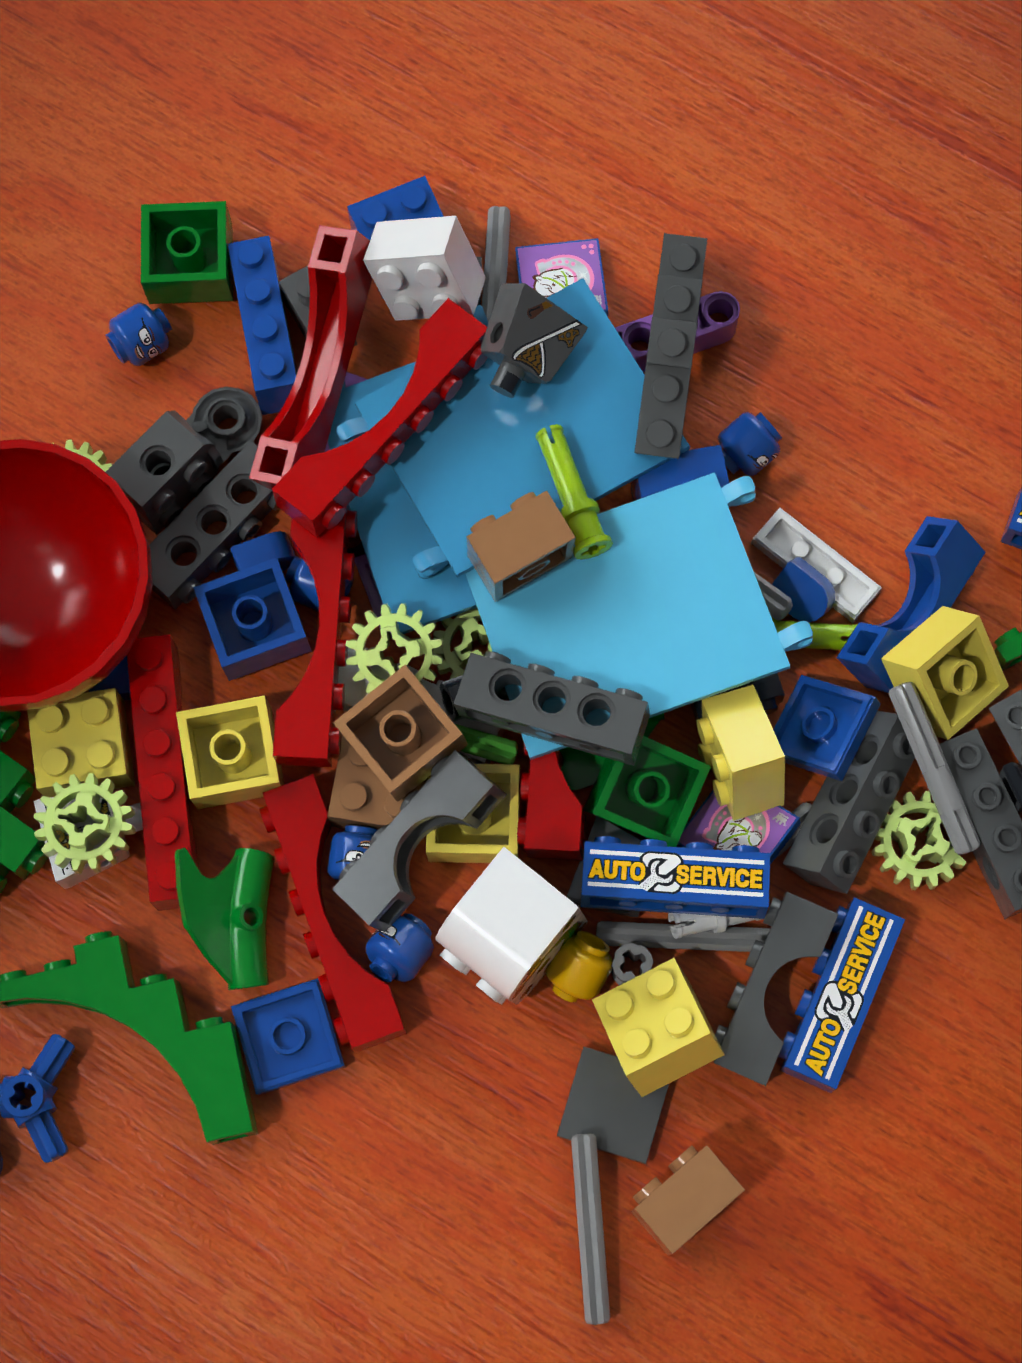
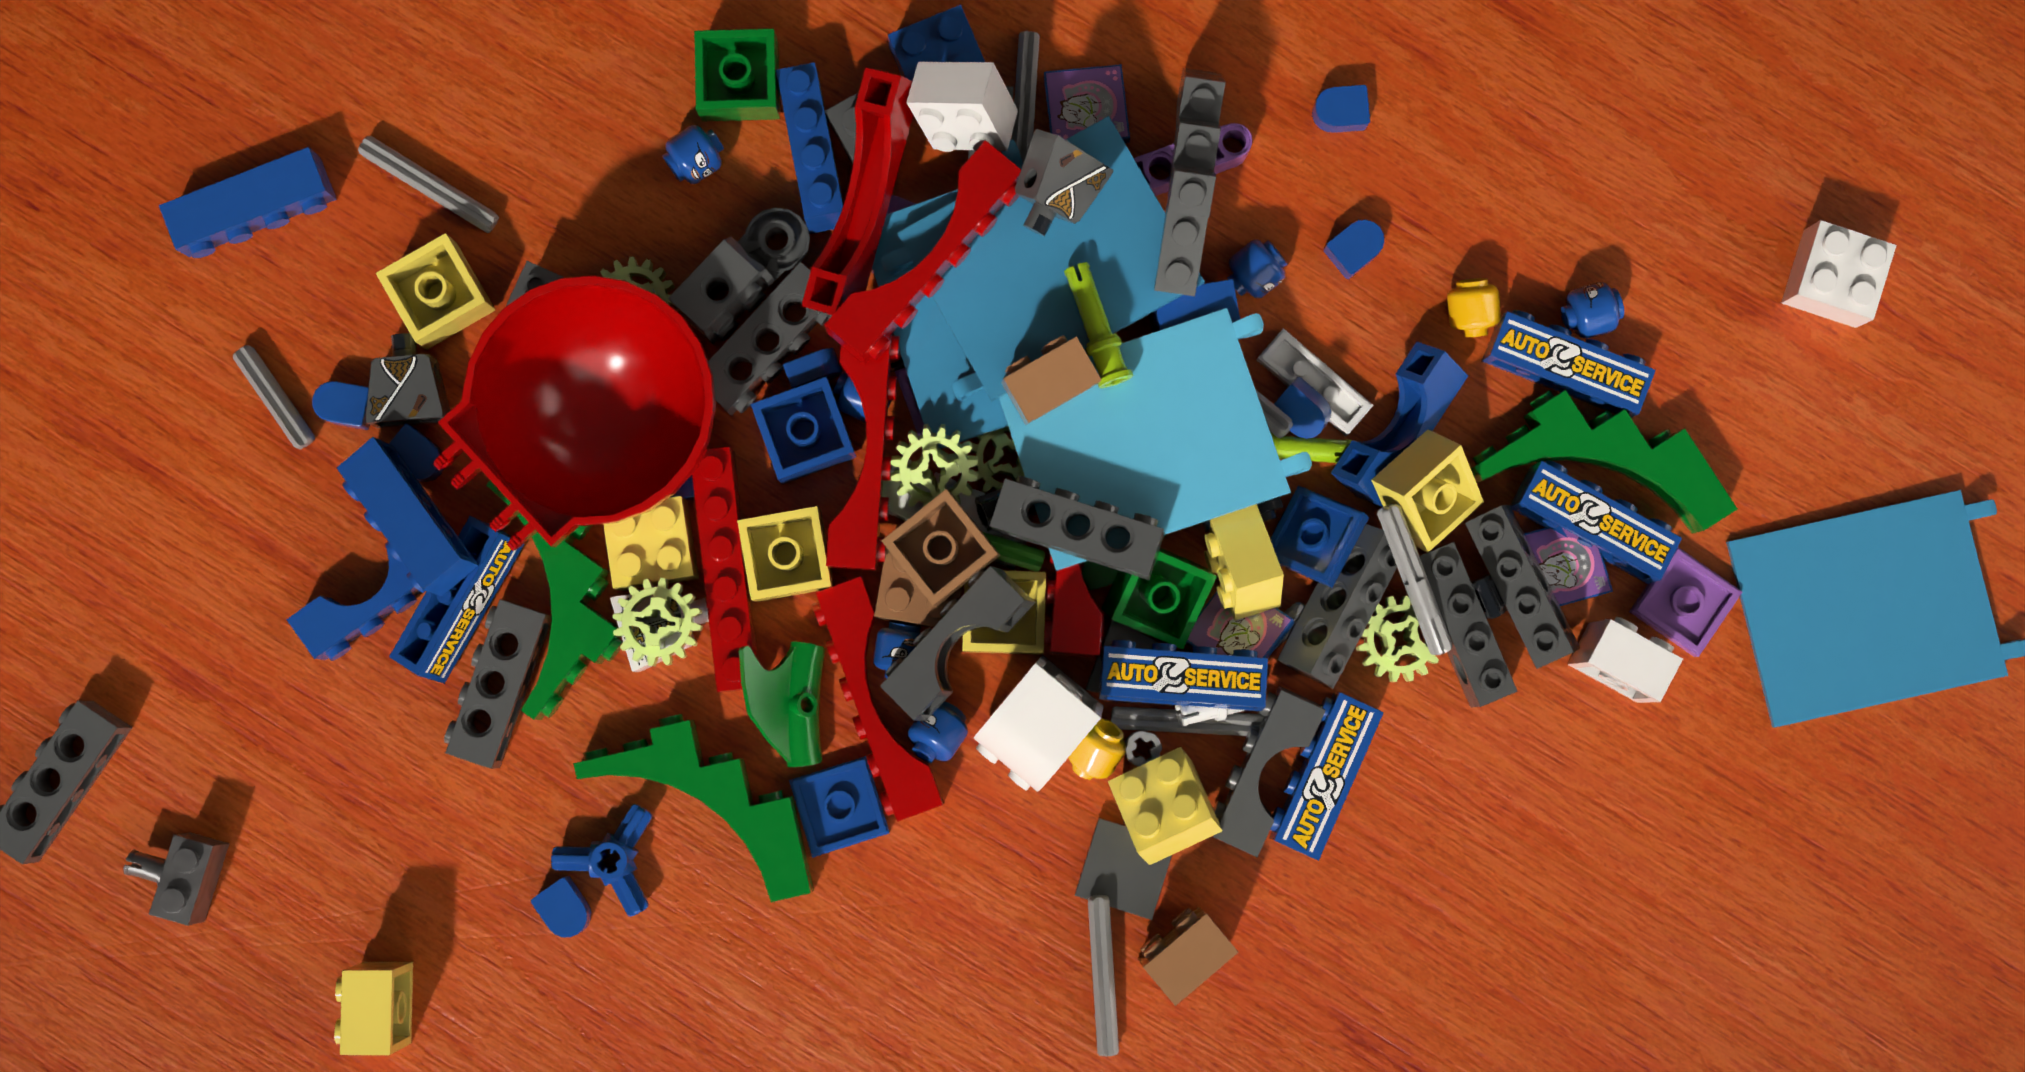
camera: 10 degrees left, 10 degrees up
(837, 280) = (1342, 109): none -> blue piece
(855, 421) = (1355, 247): none -> blue piece
(988, 480) = (1474, 306): none -> yellow head

